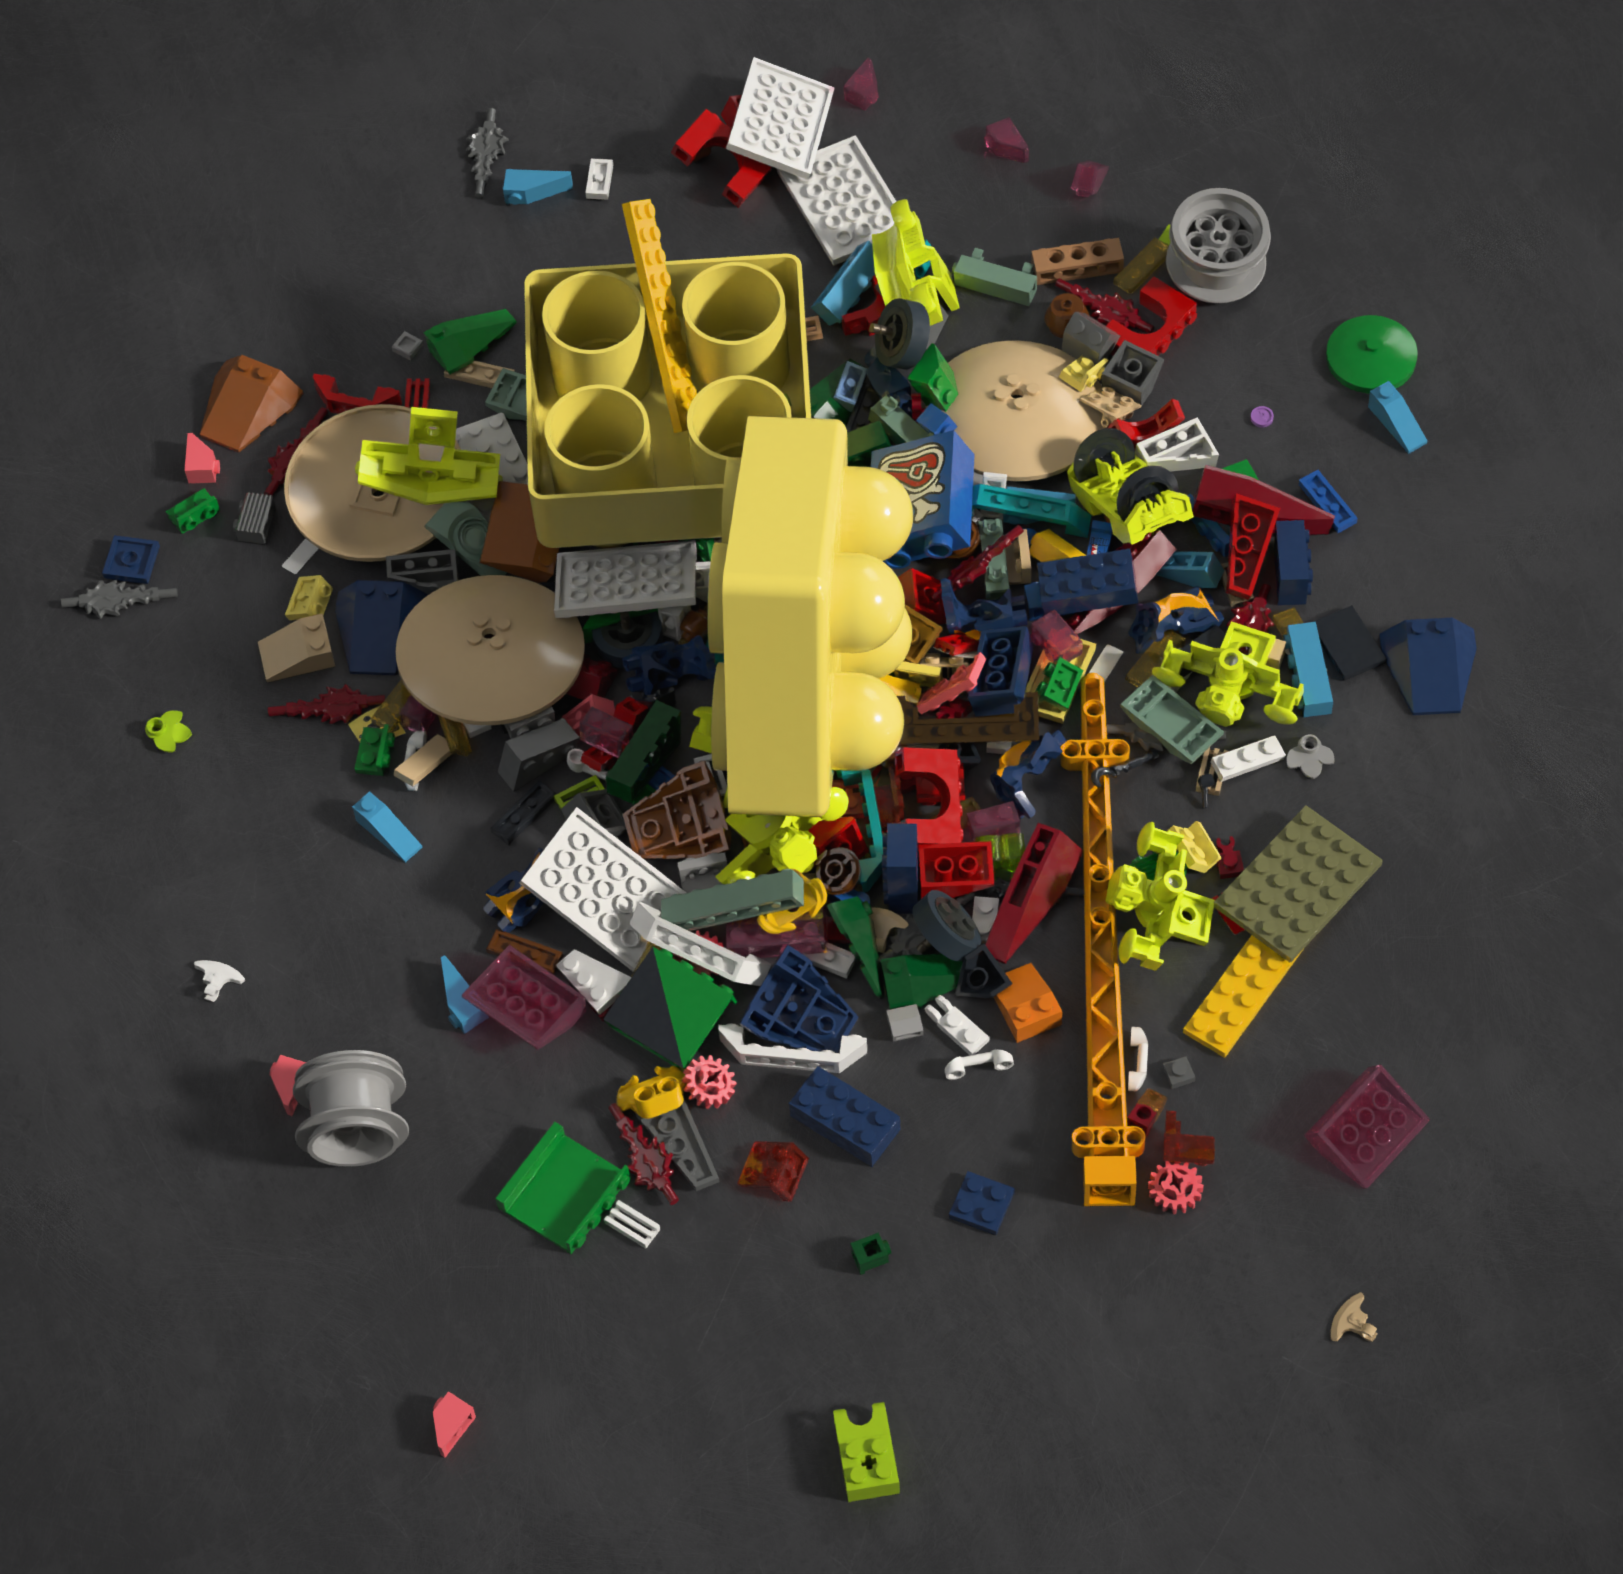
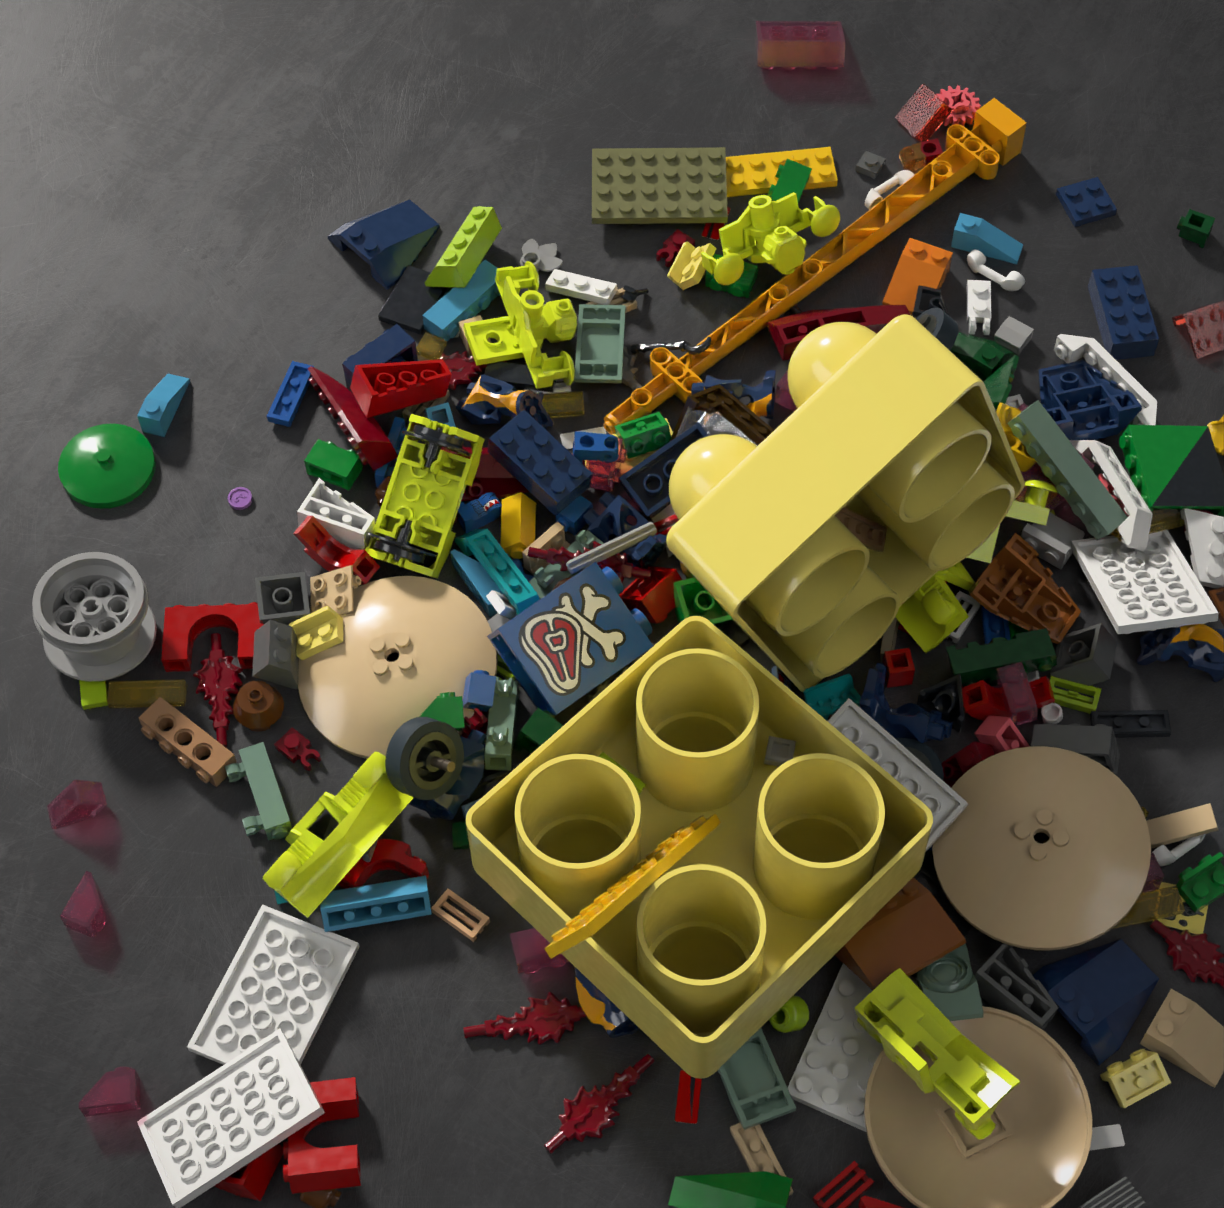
camera: 135 degrees left, 0 degrees up
(702, 692) = (899, 667): none -> red brick
(714, 1092) = (1195, 408): coral gear -> none
(966, 570) = (611, 548): none -> light grey axle
(1014, 1084) = (978, 234): none -> dark azure slope
(1015, 321) = (295, 747): none -> dark red plate
(1063, 621) = (595, 447): none -> blue leg
(1204, 975) = (791, 179): none -> green brick
(1354, 693) = (466, 249): none -> lime slope

